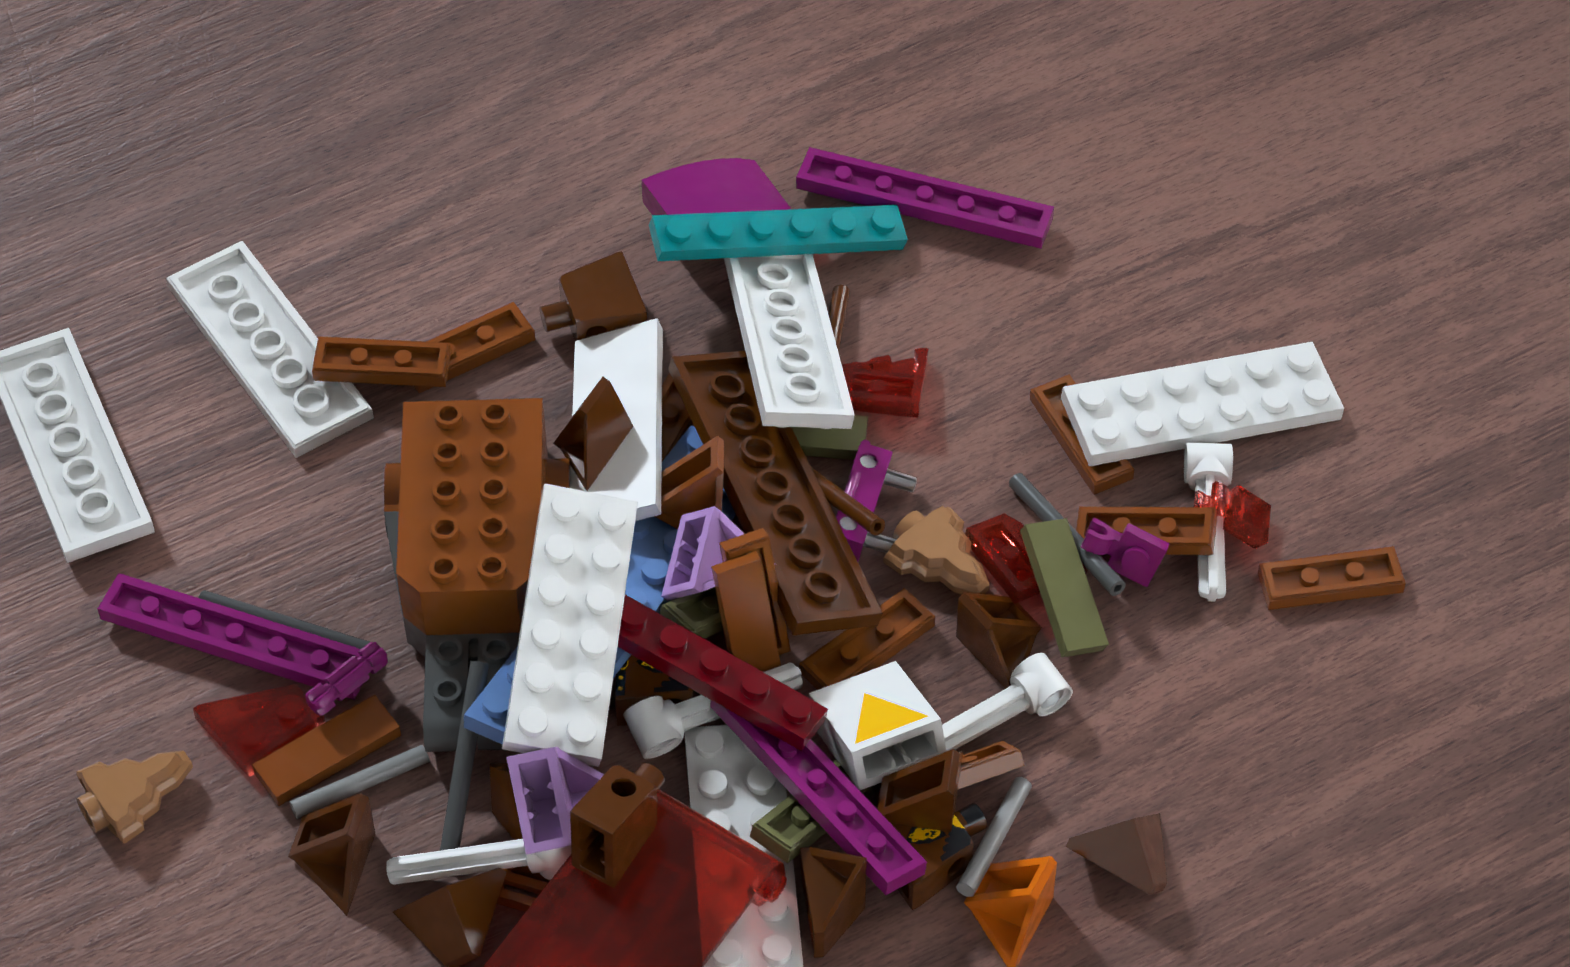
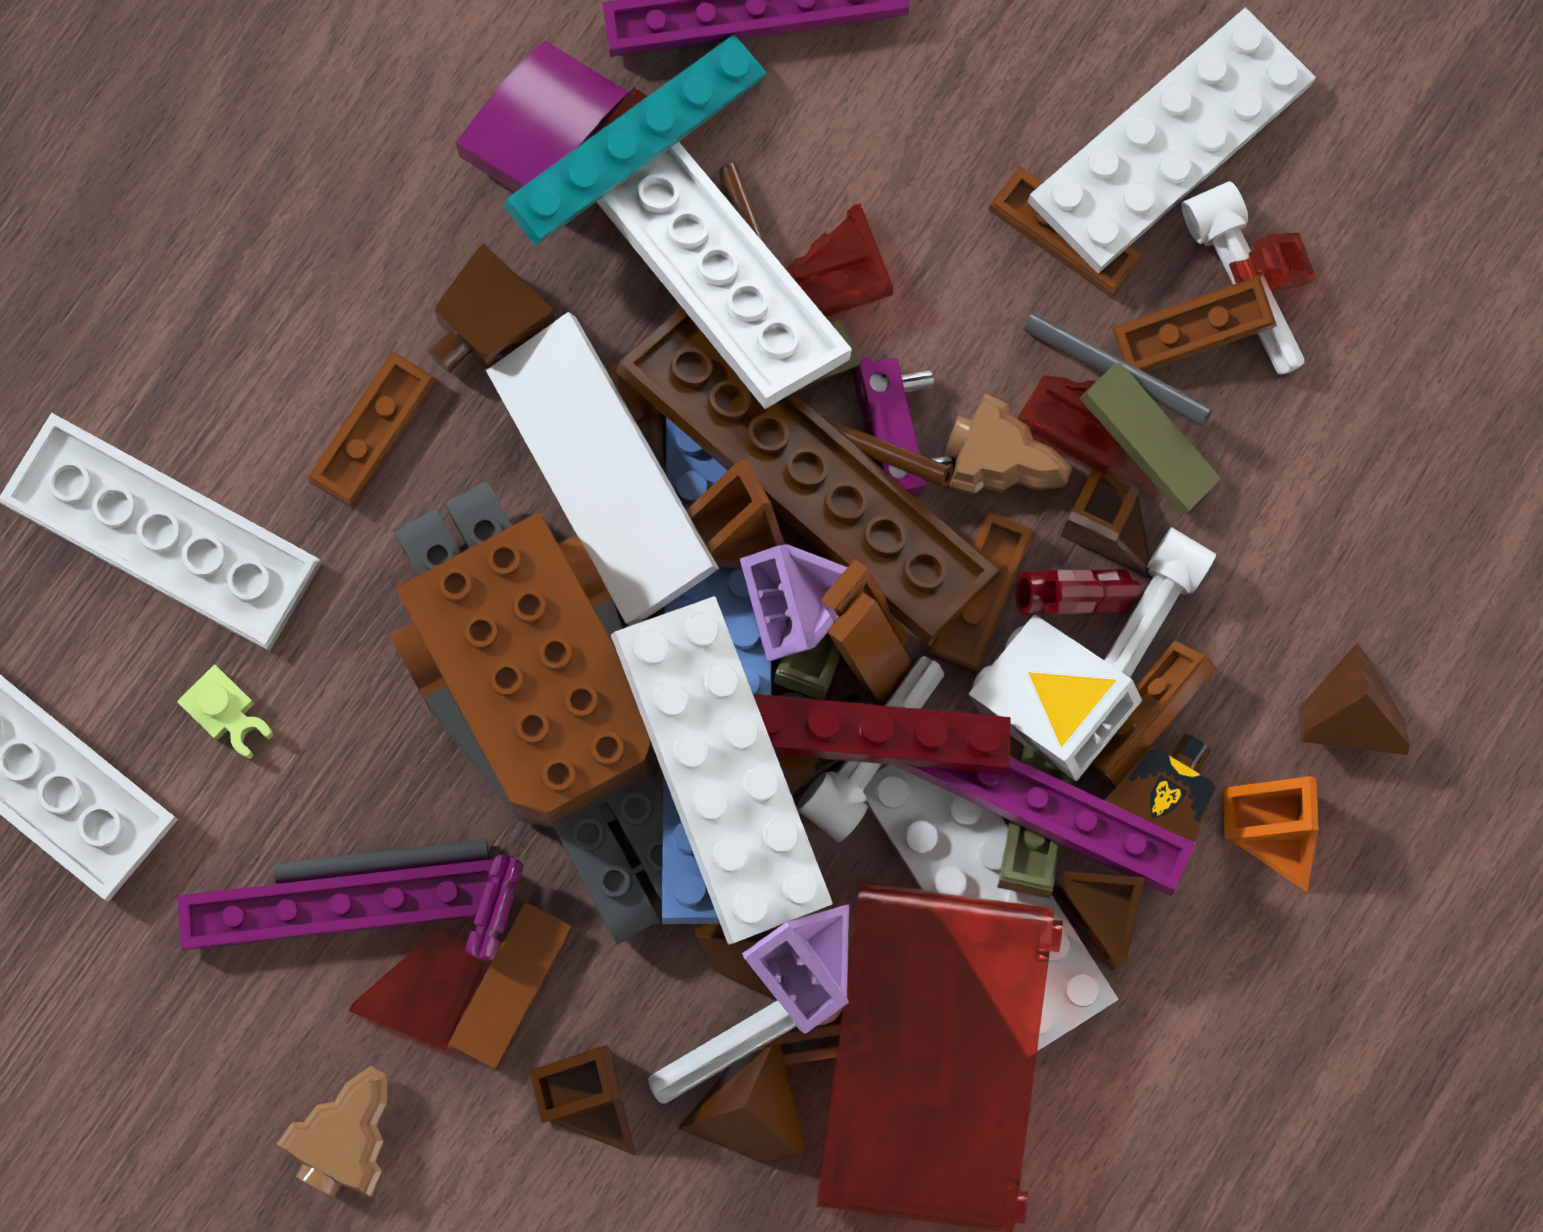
camera: 30 degrees left, 25 degrees up
(236, 477) = (221, 708): none -> yellowish green plate
(359, 781) = (564, 1004): light grey piece -> none
(381, 361) = (299, 500): dark orange tile -> none
(463, 762) = (669, 944): dark grey piece -> none
(594, 432) = (588, 502): reddish brown slope -> none
(614, 821) = (886, 982): reddish brown torso -> none
(923, 793) = (1148, 755): reddish brown slope -> none
(941, 665) = (1076, 591): none -> dark red rock
(994, 837) = (1220, 755): light grey bar -> none
(1131, 553) = (1194, 365): magenta plate -> none
(1331, 578) = (1395, 288): dark orange tile -> none

